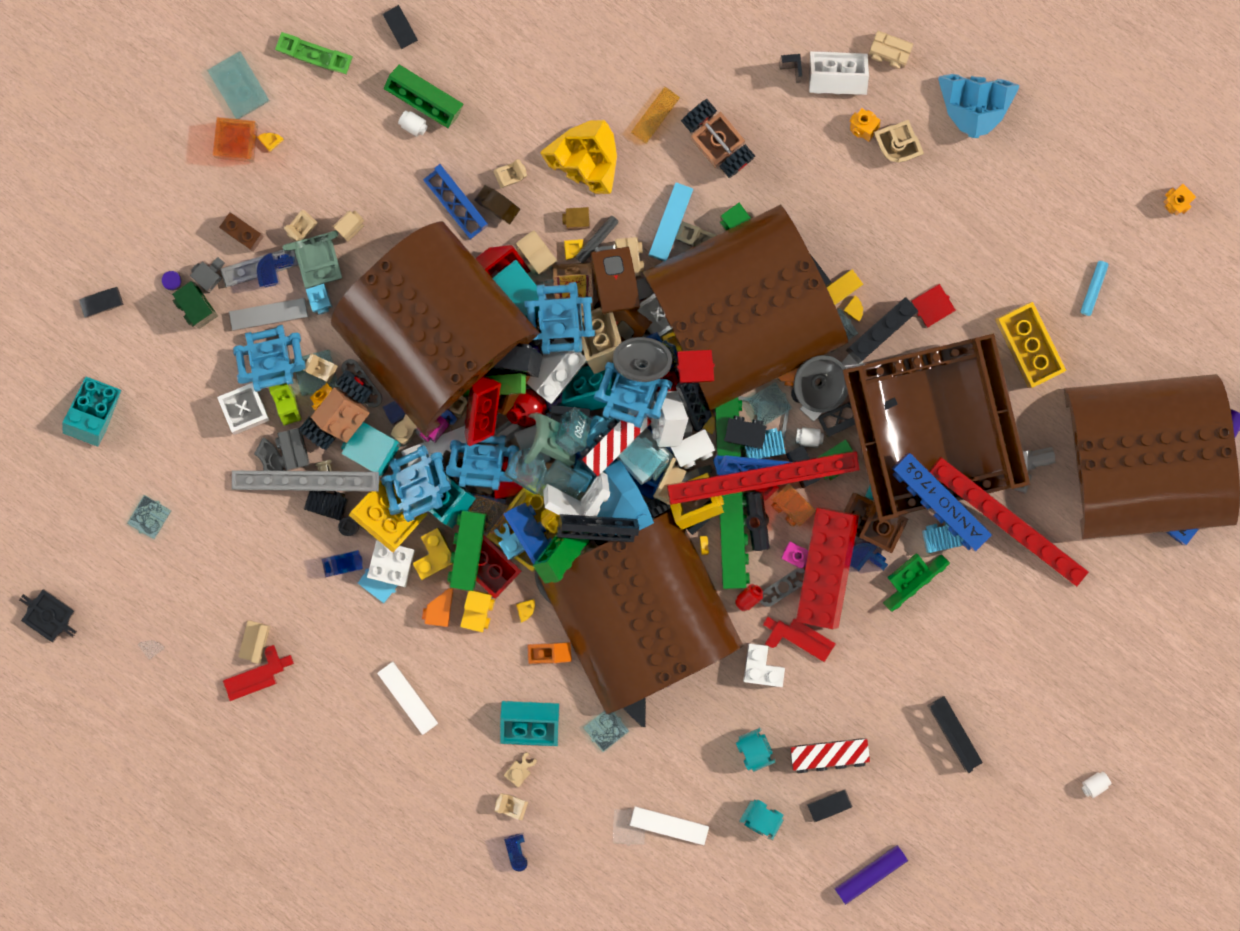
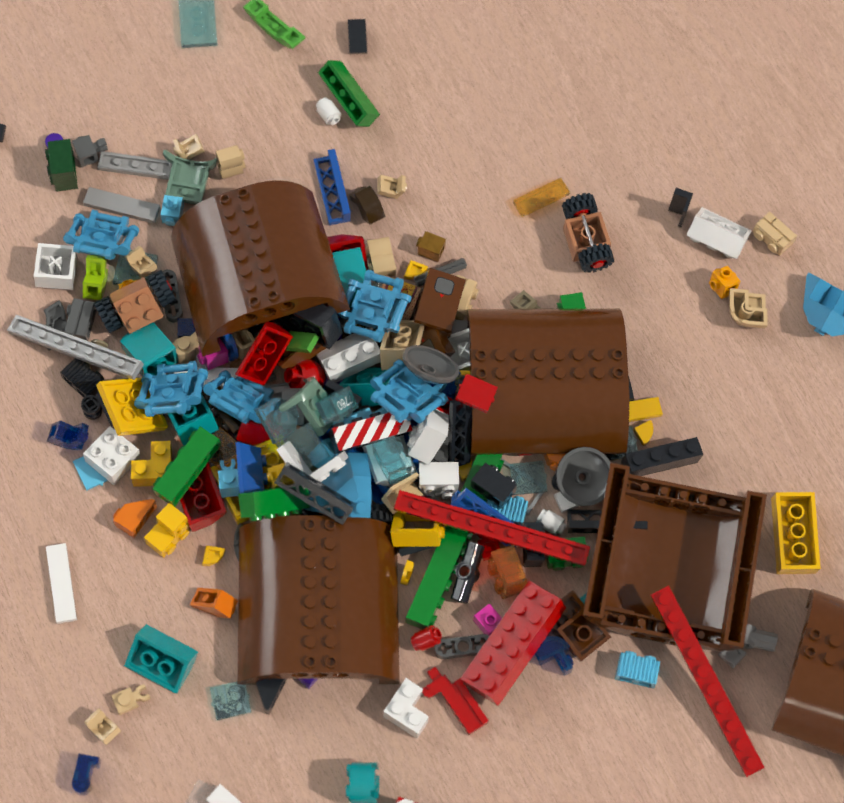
camera: 20 degrees right, 20 degrees down
(235, 139) = (171, 56): clear orange brick -> none
(241, 231) = (135, 129): reddish brown brick -> none
(267, 269) = (143, 164): clear blue brick -> none
(270, 140) = (200, 74): yellow tile -> none
(585, 155) = (464, 200): yellow brick -> none
(670, 222) = (513, 284): medium azure slope -> none
(912, 577) = (588, 692): green bracket -> none
(933, 305) = (719, 463): red piece -> none
(941, 501) = (650, 628): blue brick -> none

